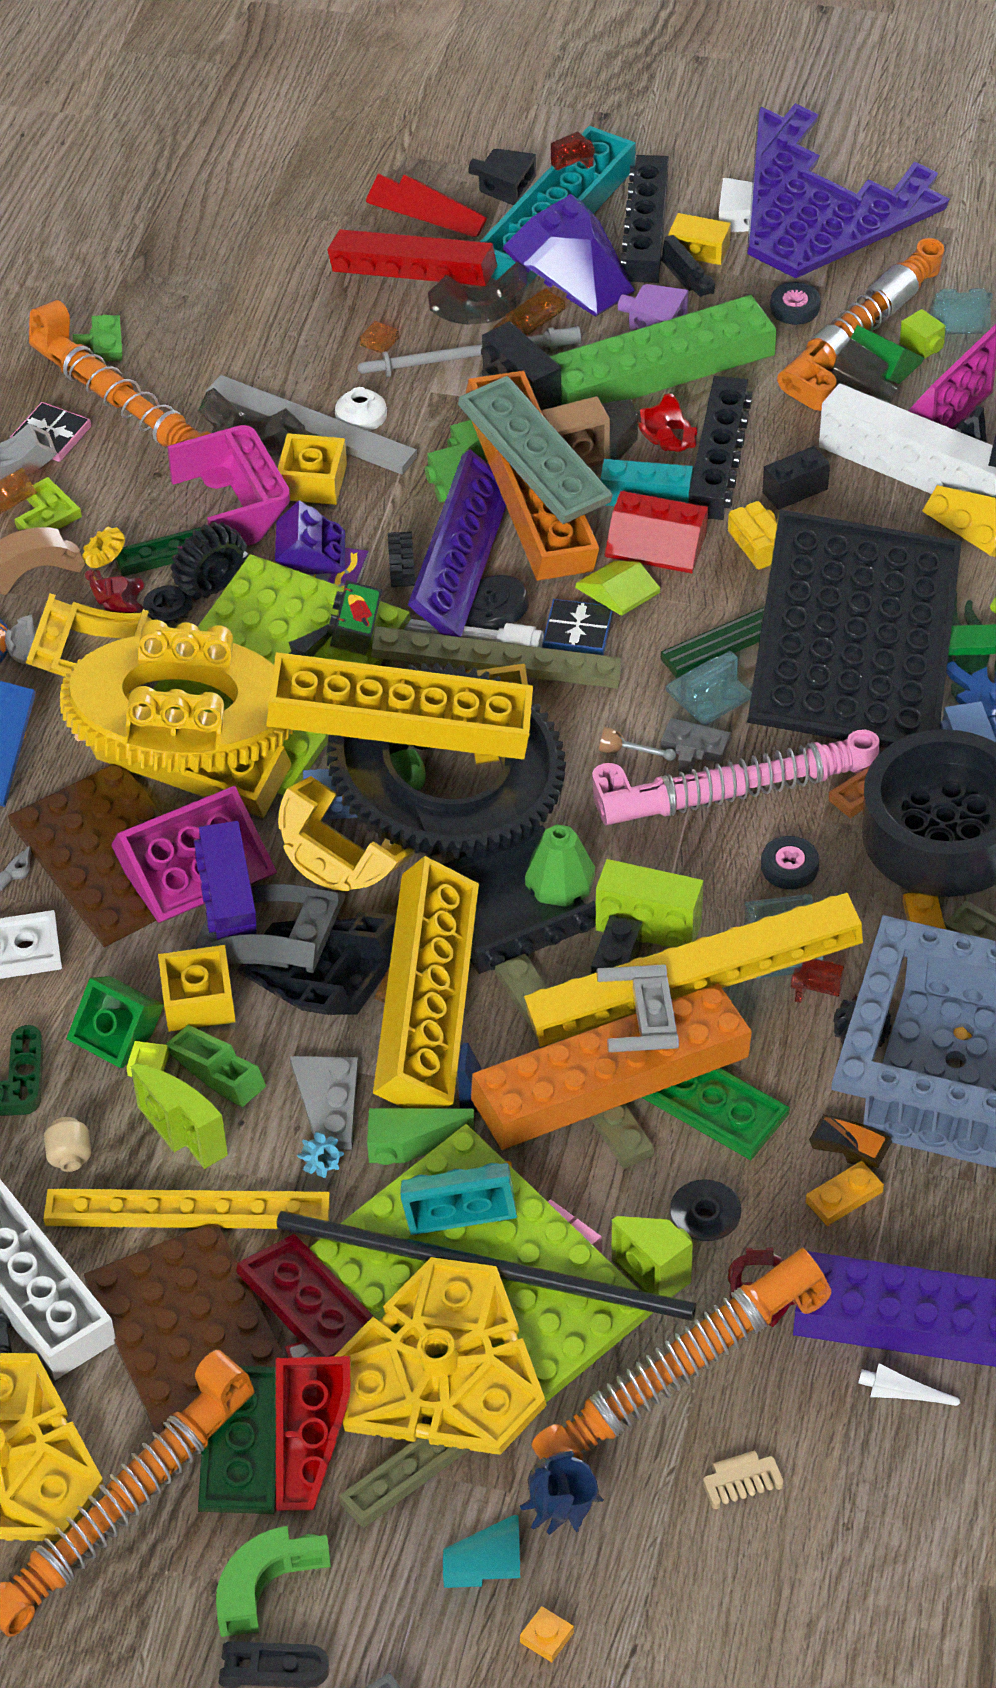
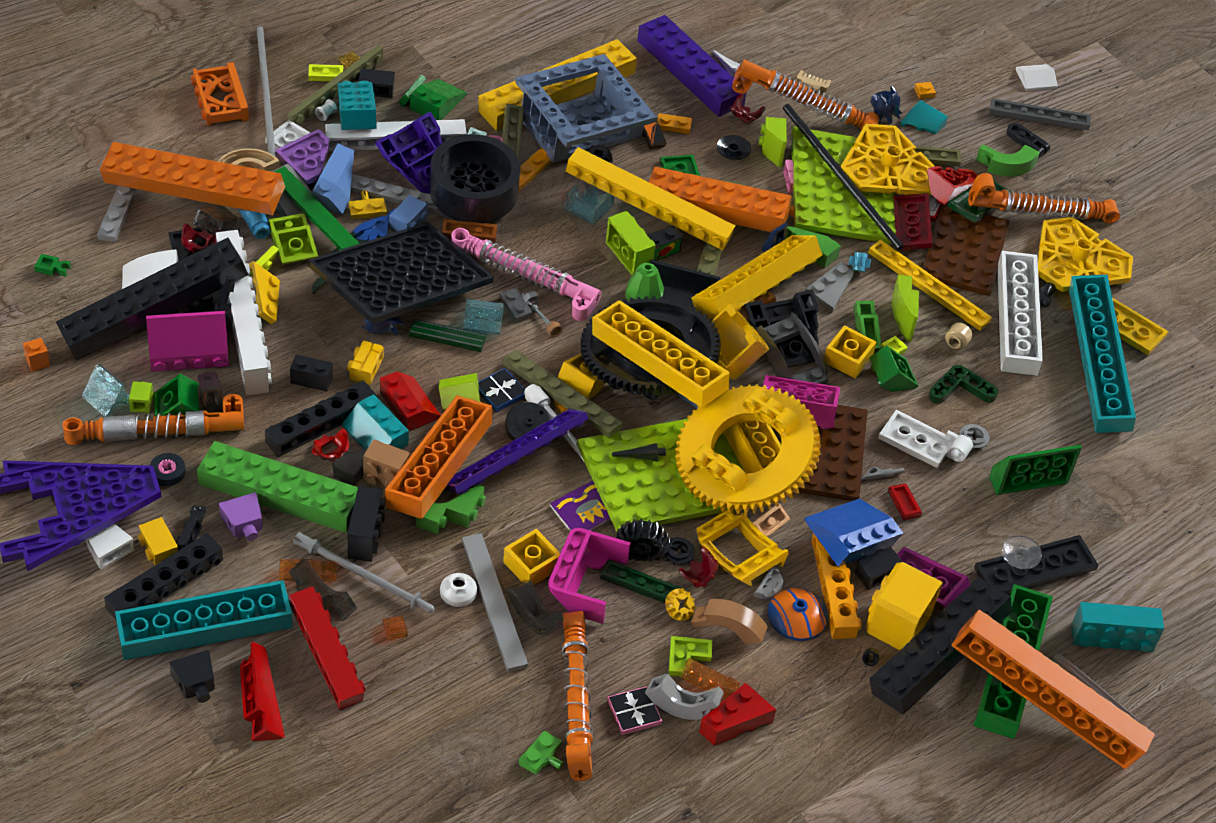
camera: 145 degrees left, 0 degrees up
(225, 880) = (805, 359): dark purple piece -> none
(309, 541) = (580, 513): dark purple slope -> none
(355, 617) = (615, 438): brick -> none
(401, 559) = (547, 471): black tyre -> none
(458, 1198) = (834, 187): teal slope -> none
(535, 449) = (435, 443): sand green plate -> none
(571, 150) = (164, 622): clear red bracket -> none
(572, 253) = (247, 561): dark purple wedge -> none
(652, 1008) = (692, 183): light grey plate -> none
(787, 874) = (546, 238): black bush -> none

